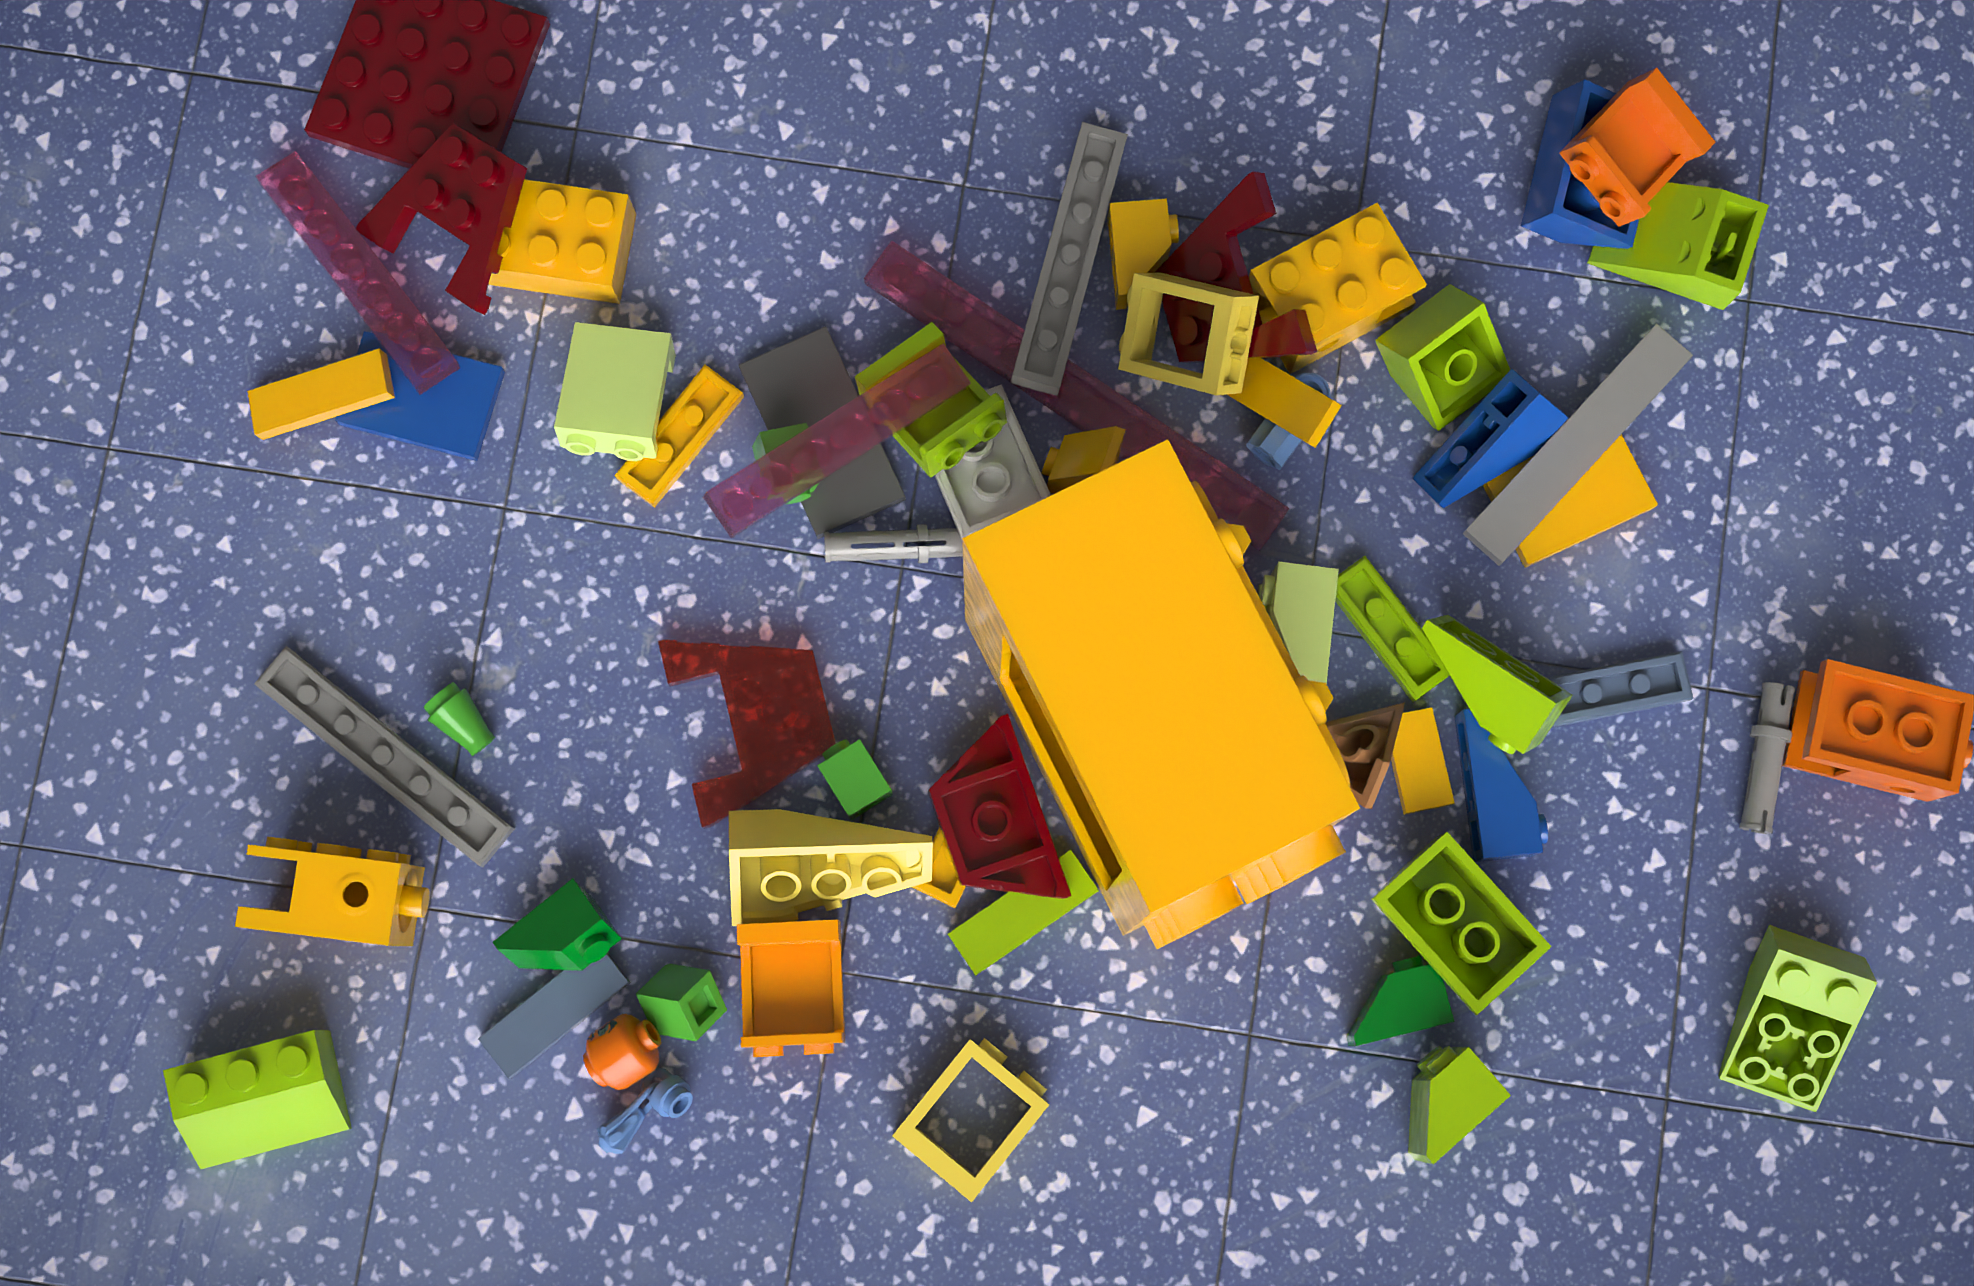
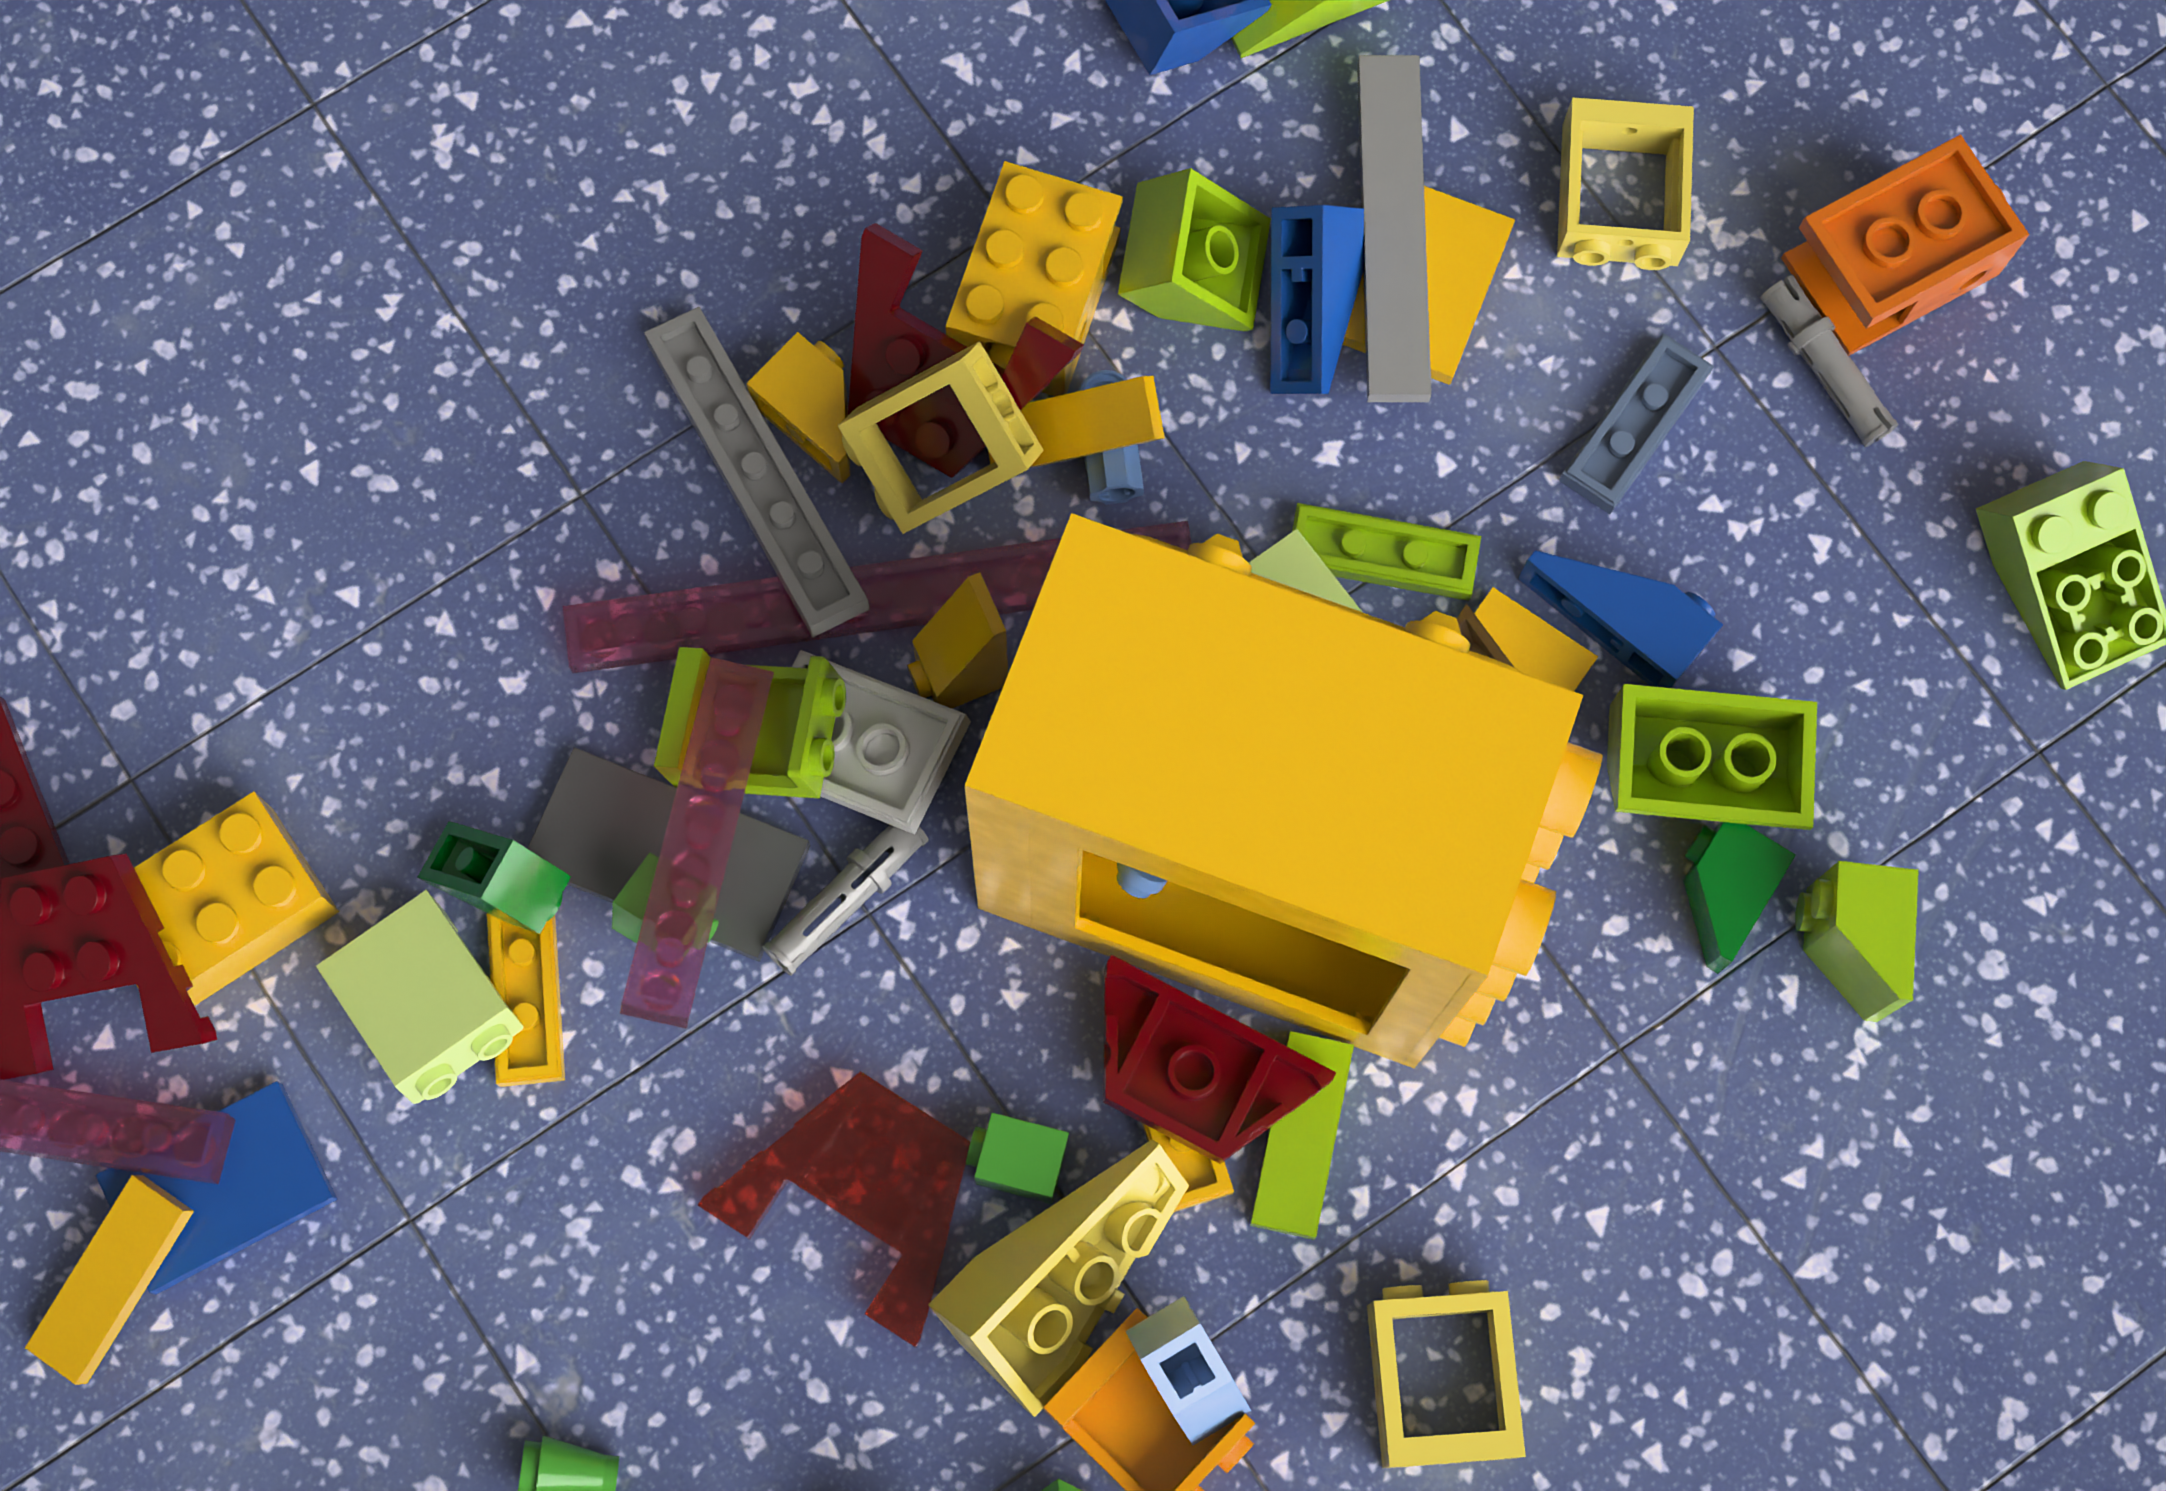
camera: 45 degrees left, 5 degrees down
(714, 360) = (495, 876): none -> green slope
(829, 978) = (1187, 1371): none -> light blue slope
(1498, 688) = (1551, 510): lime slope -> none
(1780, 510) = (1629, 129): none -> light yellow window

